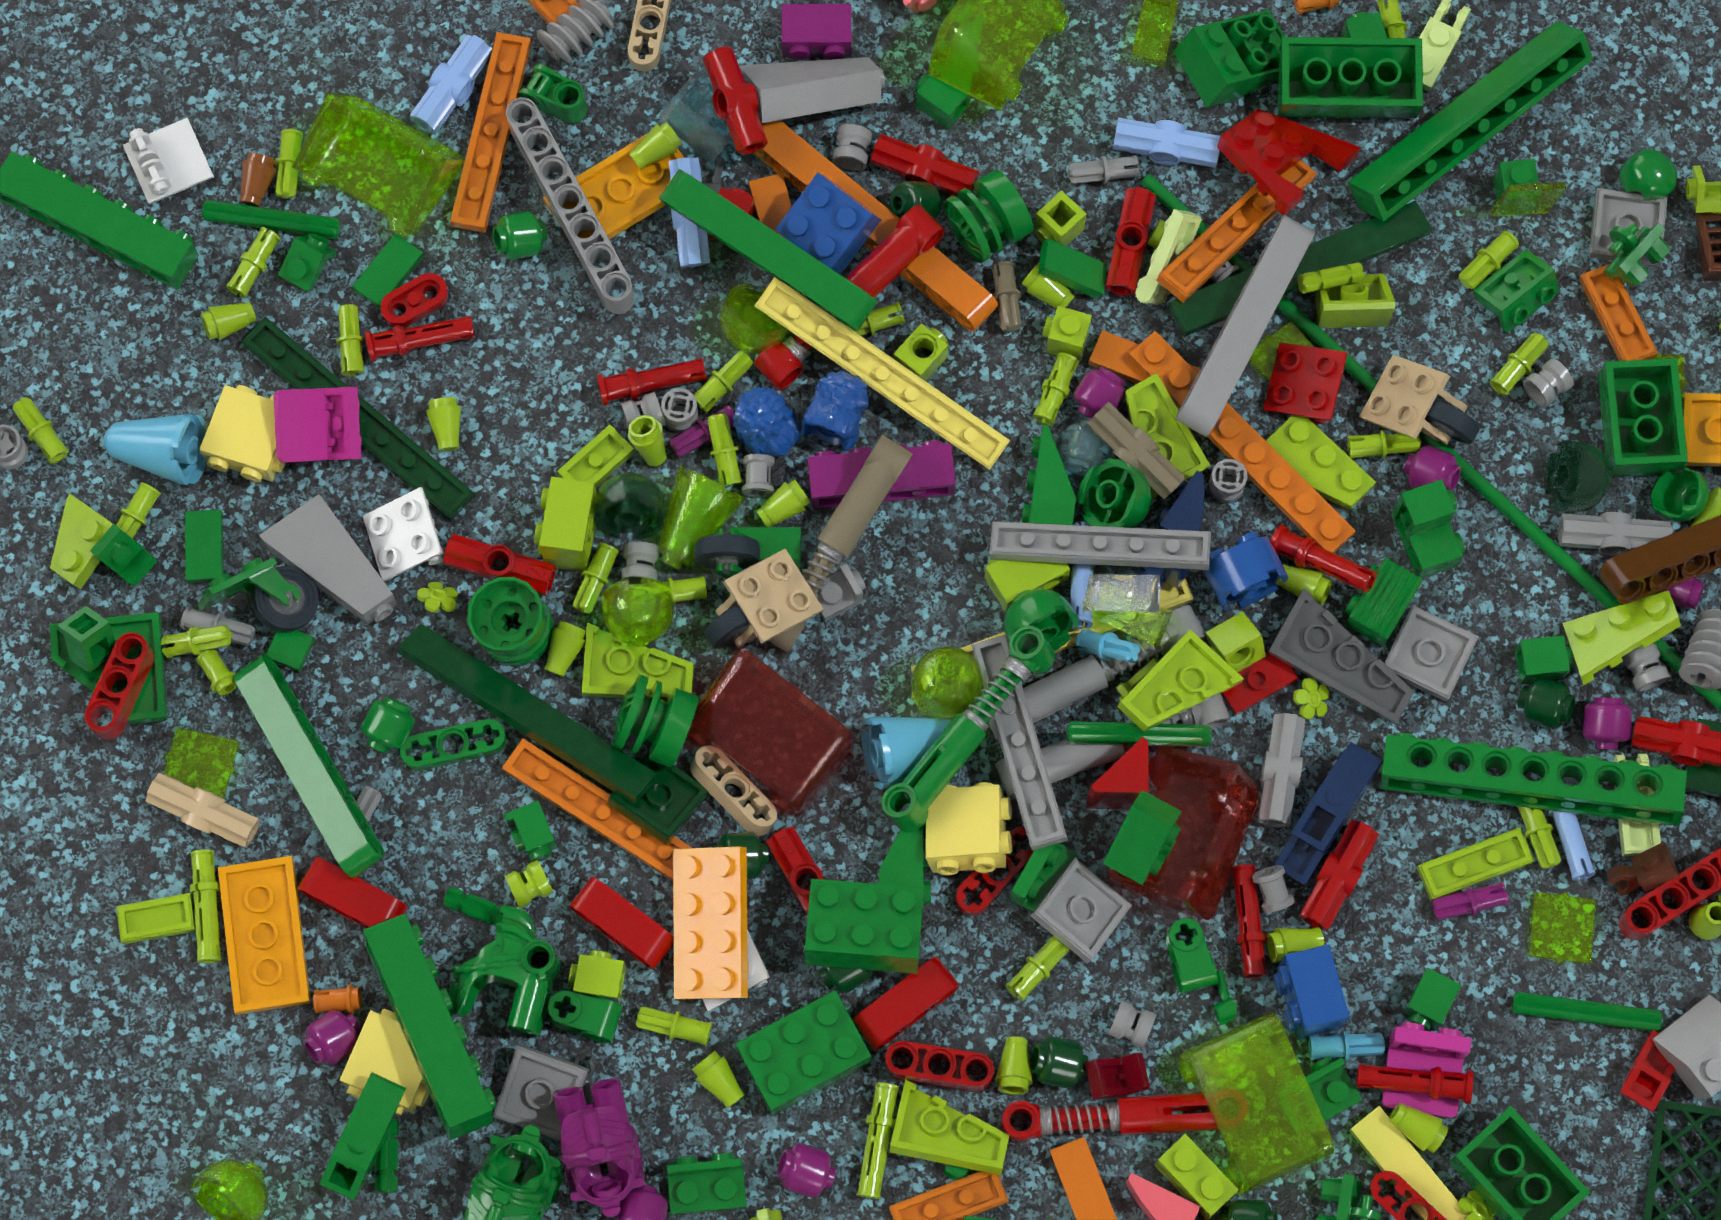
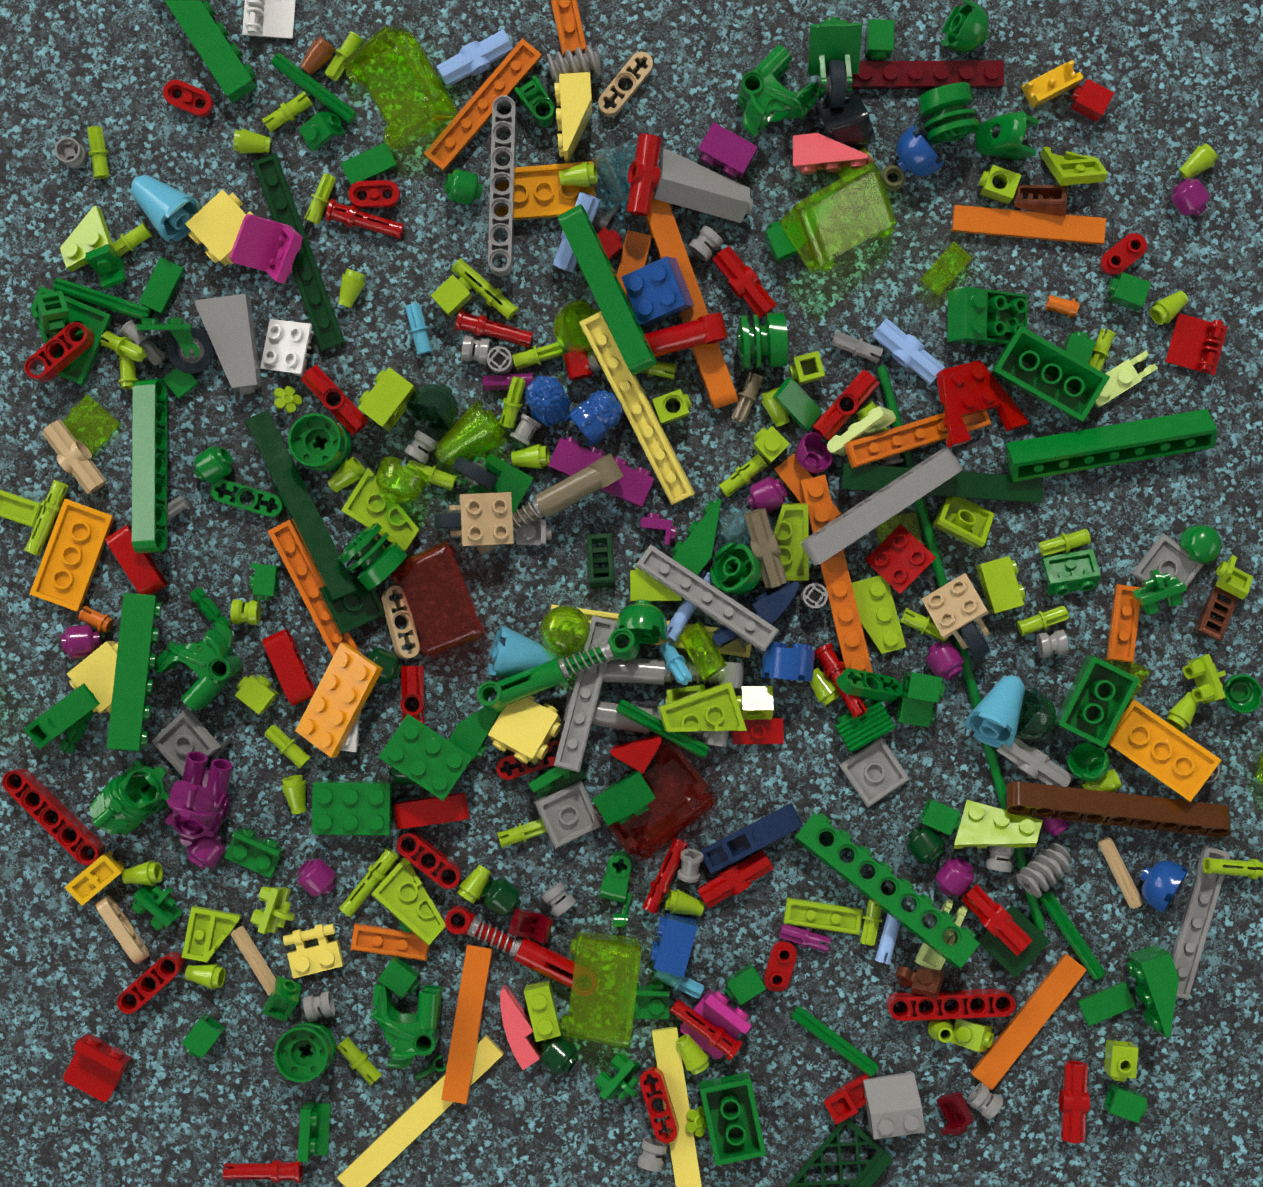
camera: 30 degrees right, 15 degrees up
(122, 307) = (190, 98): none -> red plate
(142, 600) = (101, 299): none -> green axle
(556, 426) = (418, 328): none -> medium azure axle
(578, 365) = (452, 295): none -> lime brick
(592, 1016) = (239, 715): green piece -> none
(595, 578) = (389, 440): lime axle -> none
(598, 458) = (430, 365): lime plate -> none
(602, 68) = (575, 99): none -> light yellow slope
(625, 341) = (506, 309): none -> lime pin
(648, 439) = (468, 369): lime cone -> none
(913, 193) = (724, 301): dark green head -> none
(954, 601) = (600, 582): none -> dark green slope
(984, 499) = (655, 522): none -> magenta bracket
(1122, 593) = (701, 638): clear slope -> none
(1124, 317) = (813, 454): none -> magenta hair
(1281, 770) = (739, 795): light grey piece -> none
(1311, 698) = (783, 761): lime plant -> none
(1328, 653) = (812, 743): dark grey wing -> none
(1330, 277) = (956, 502): lime axle -> none
(1360, 545) = (884, 687): none -> green beam
(1443, 346) = (1000, 584): none -> lime brick
(1460, 955) = (780, 966): none -> red plate
(1513, 174) = (1112, 503): green brick -> none
(1528, 199) = (1113, 519): clear neon green piece -> none
(1536, 496) = (998, 713): none -> medium azure cone
(1562, 927) = (851, 982): clear neon green piece -> none

